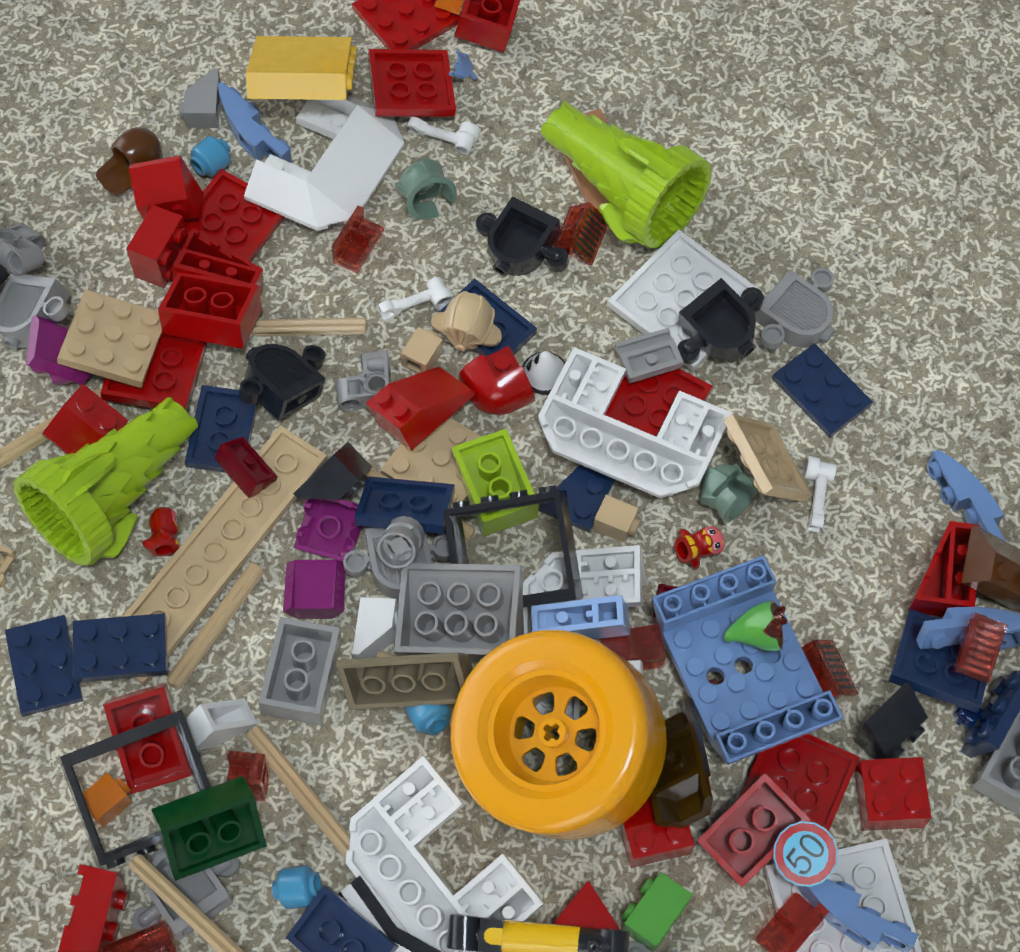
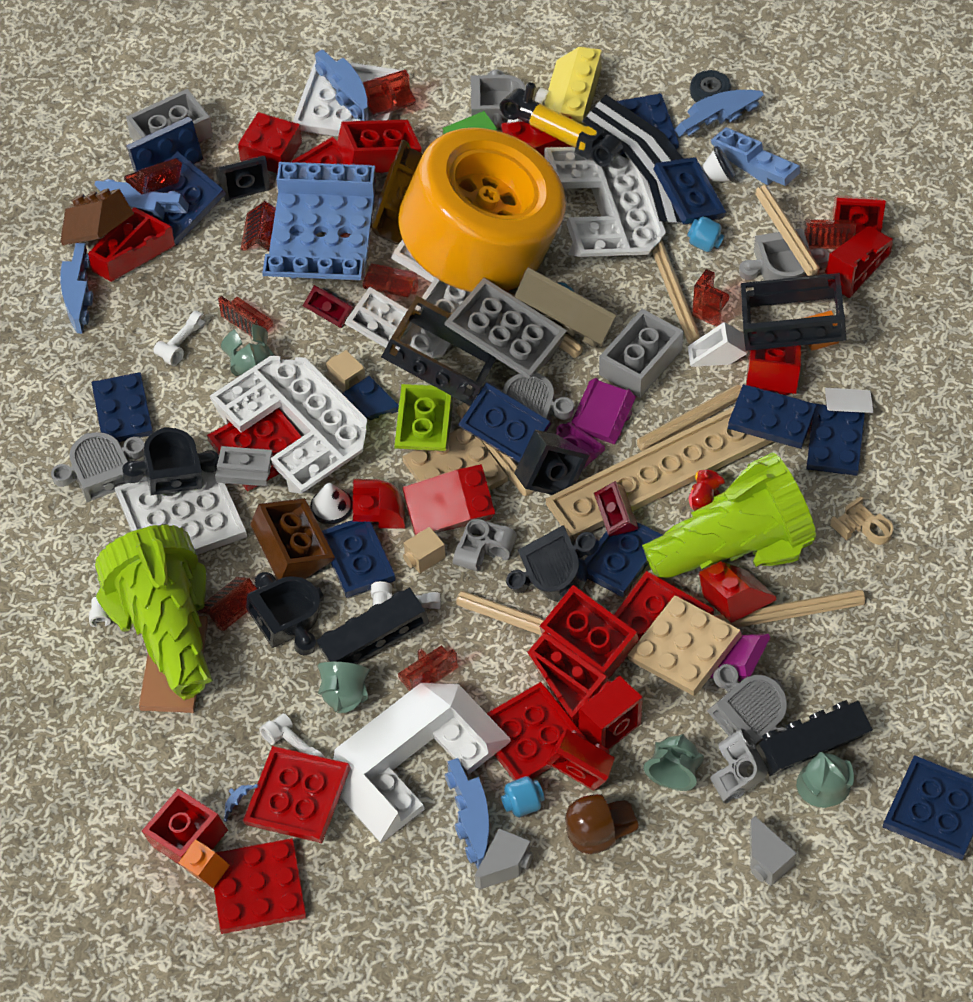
camera: 150 degrees left, 10 degrees down
(42, 718) = (848, 400): none -> white sticker
(80, 241) = (674, 763): none -> sand green helmet
(209, 827) = (752, 269): dark green slope -> none
(301, 68) = (397, 827): yellow brick -> none
(374, 626) = (569, 365): white slope -> none
(400, 542) = (525, 380): light grey wheel -> none
(425, 247) = (374, 629): none -> black brick
(468, 322) = (380, 537): tan piece -> none
(556, 305) = (291, 538): none -> reddish brown slope
(590, 617) = (405, 284): light blue slope -> none
(703, 543) = (291, 331): red animal -> none
(759, 627) = (297, 231): bright green hat -> none
(767, 458) = (206, 353): tan plate -> none
(773, 542) = (243, 315): none -> clear red panel
(805, 854) = (357, 109): piece -> none

